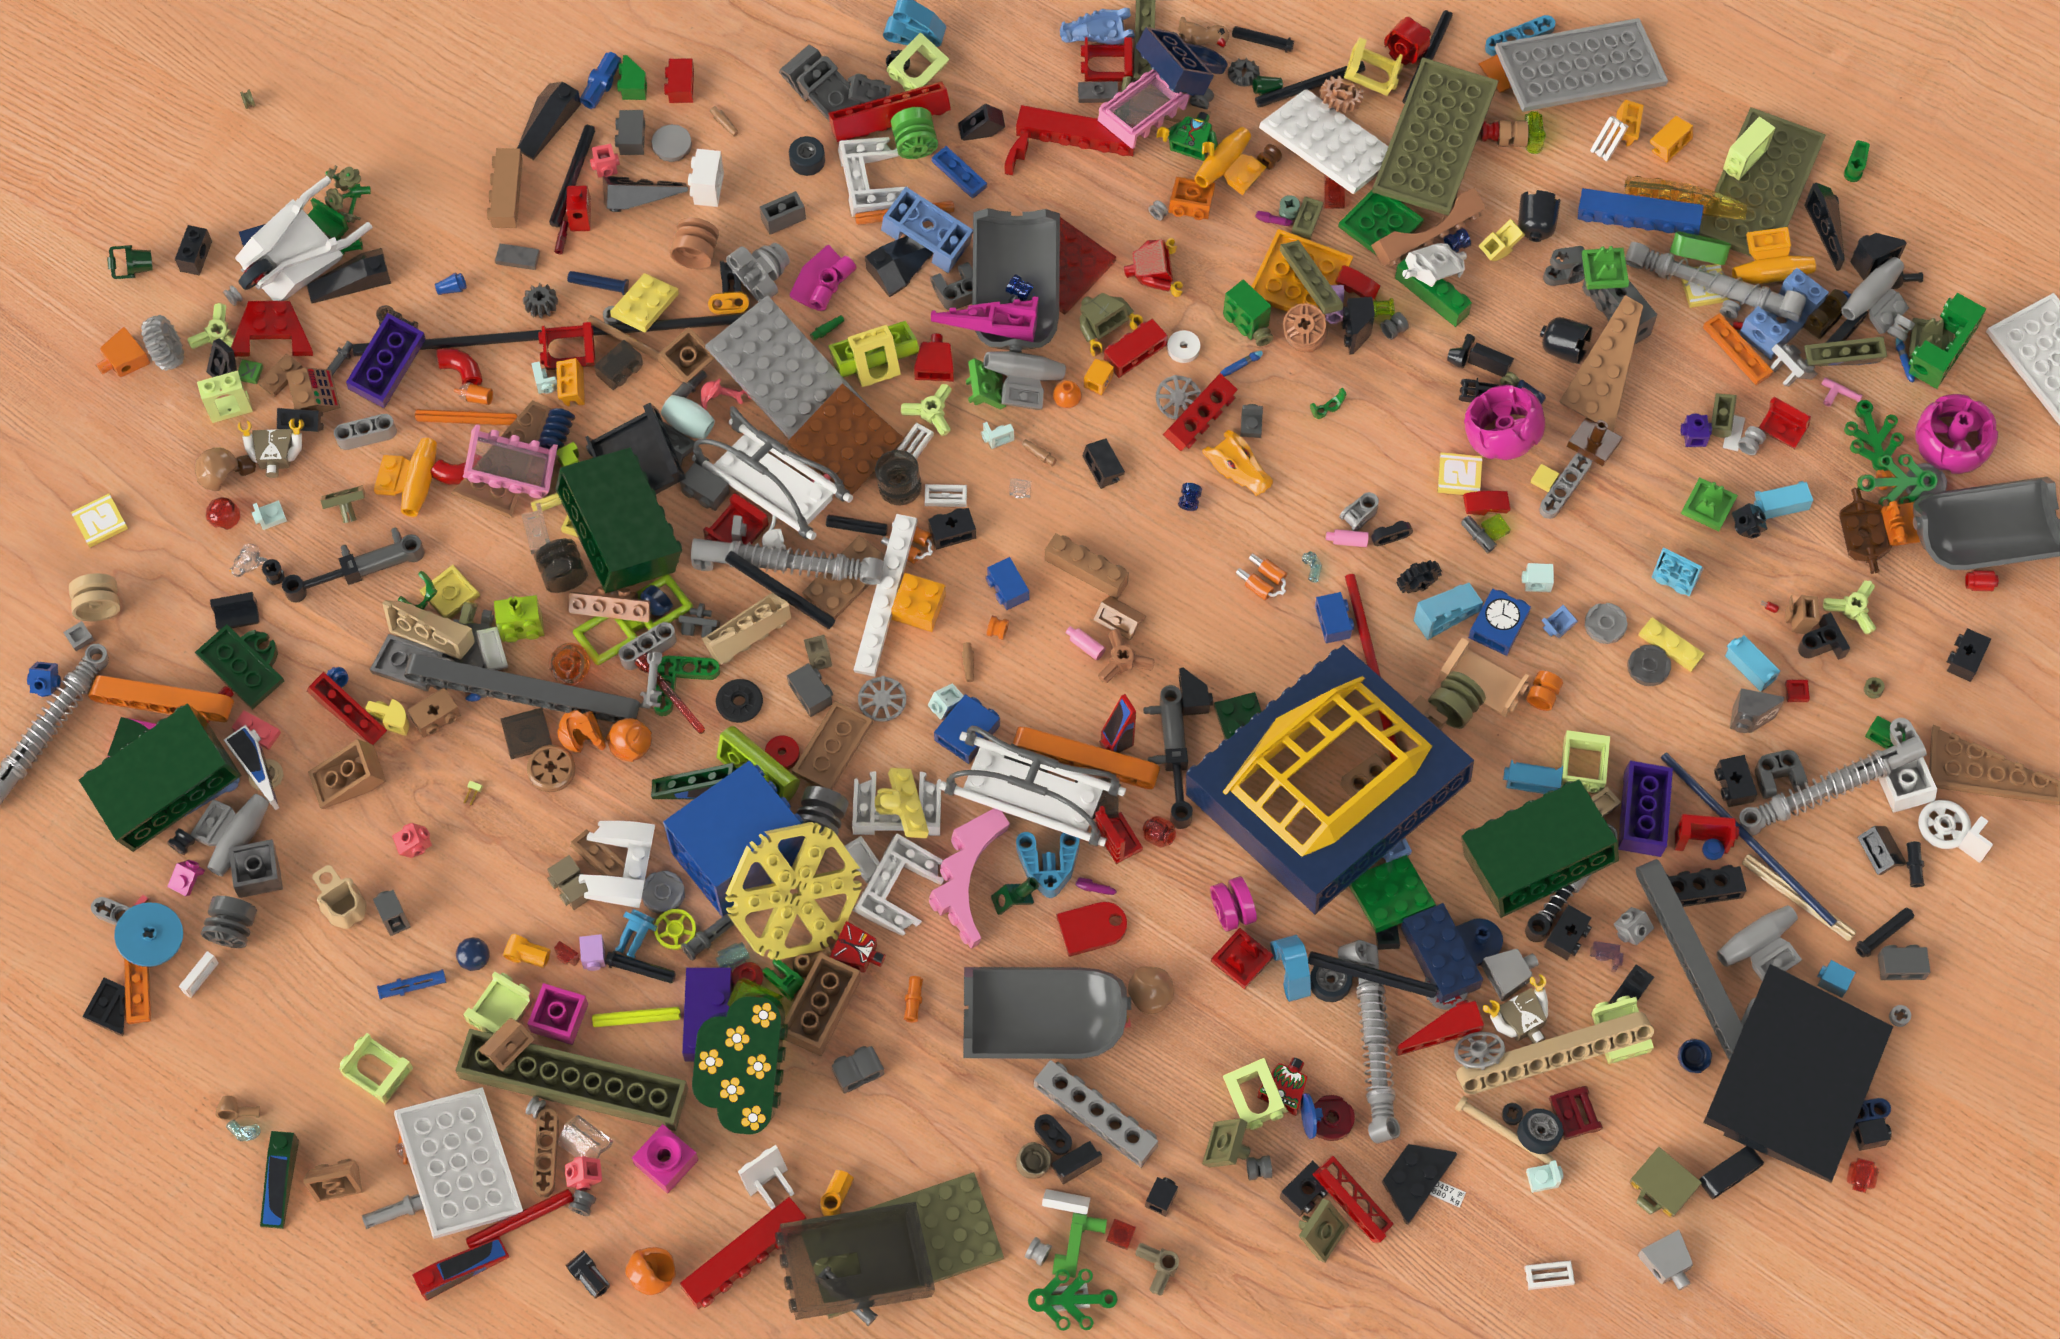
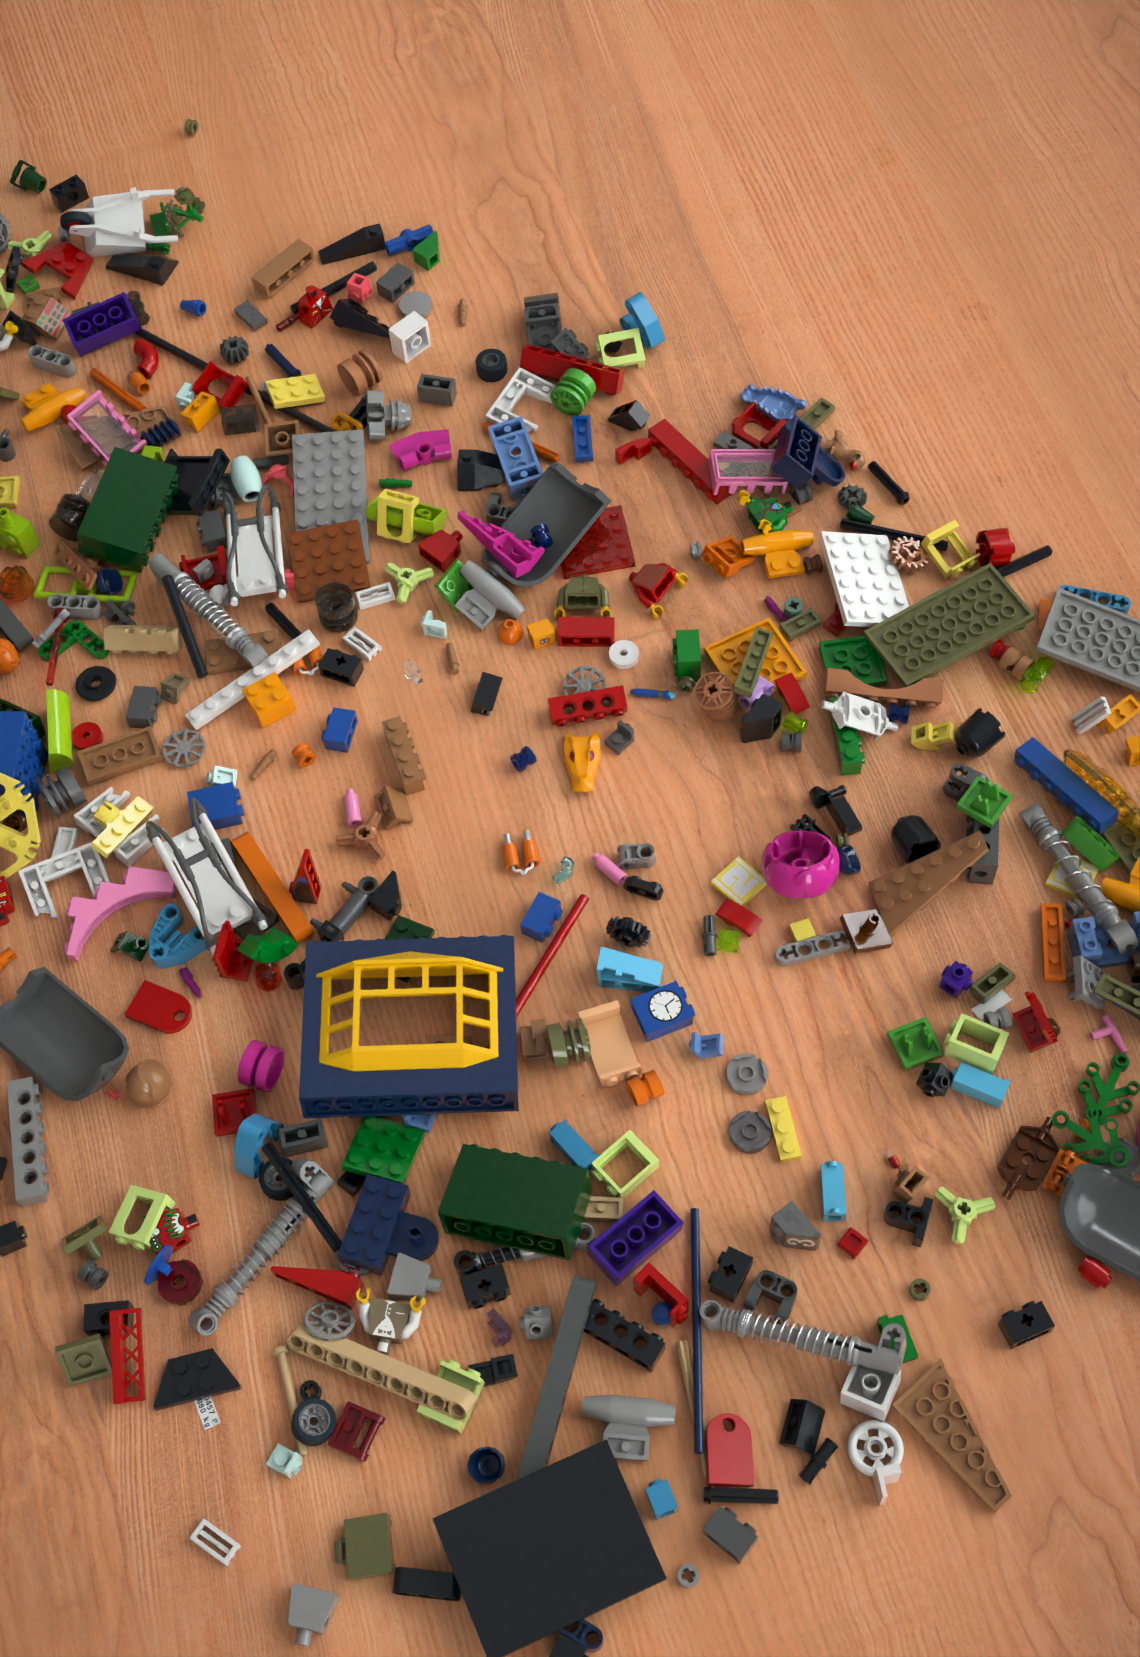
camera: 45 degrees right, 5 degrees down
(680, 80) = (458, 269): red brick -> none
(1139, 805) = (268, 947): none -> green brick
(1322, 931) = (303, 1137): none -> dark grey brick
(1338, 399) = (673, 762): green cap -> none
(1538, 577) = (723, 1000): light aqua brick -> none
(1677, 572) = (836, 1073): medium azure slope -> none
(1775, 478) = (969, 1054): none -> yellowish green window
(1851, 908) = (729, 1453): none -> tile

